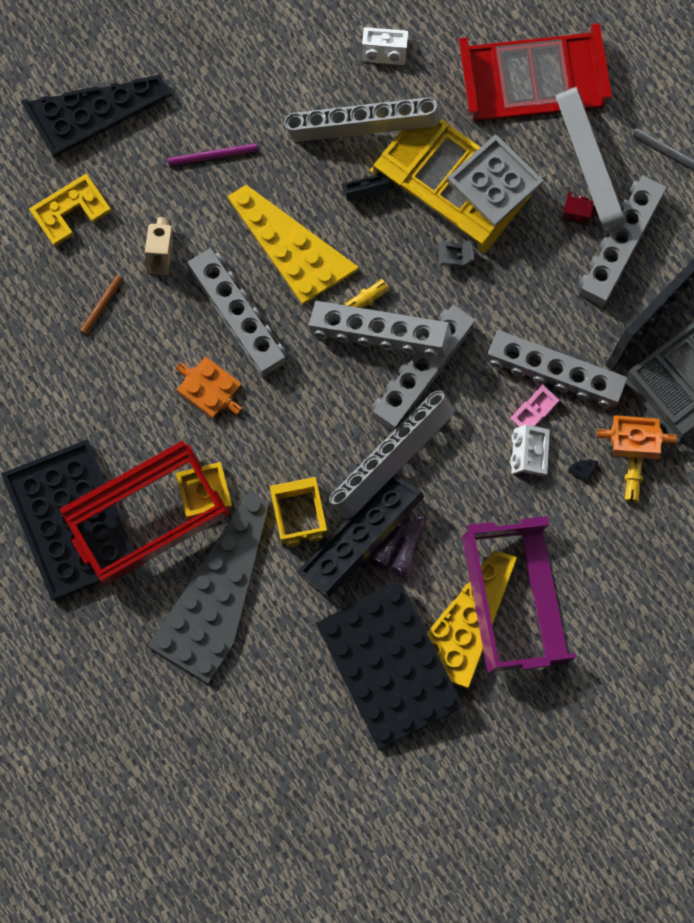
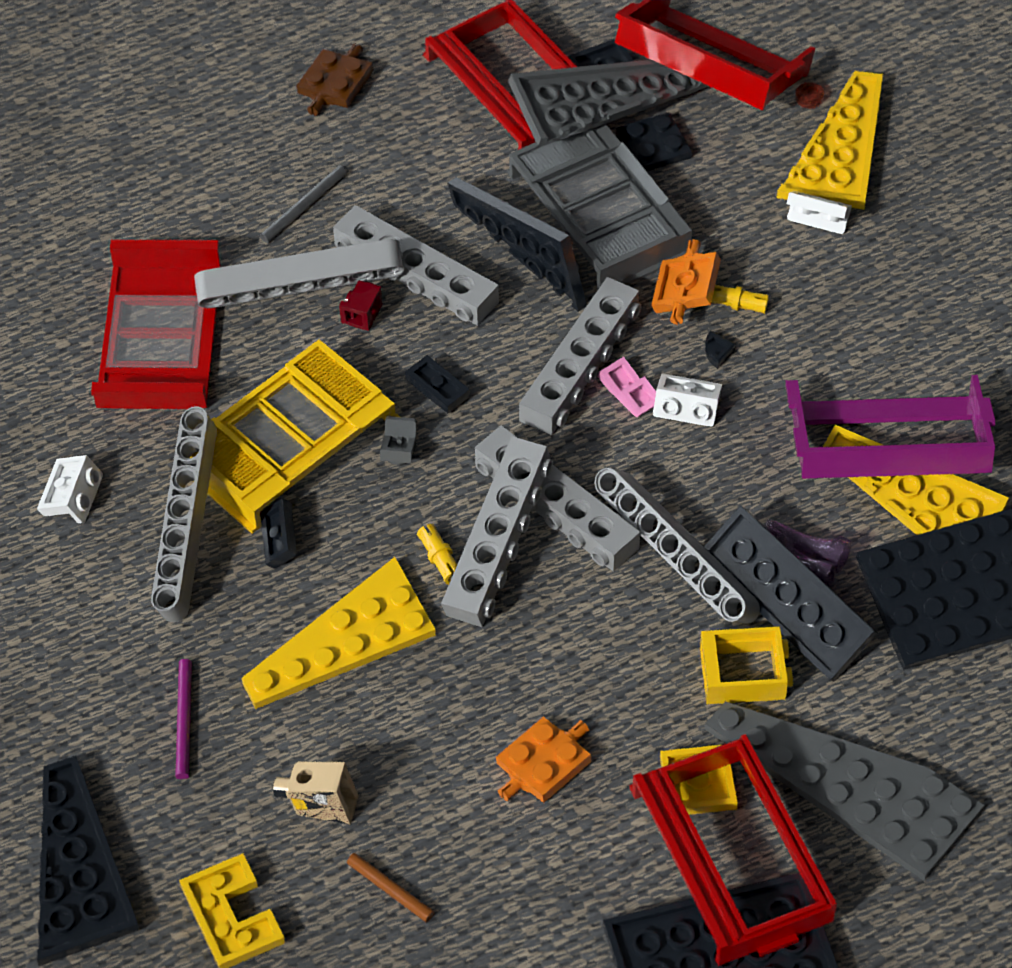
camera: 80 degrees left, 20 degrees down
(265, 361) = (427, 723): light grey brick -> none
(495, 180) = (312, 370): light grey plate -> none
(515, 273) = (437, 384): none -> black plate

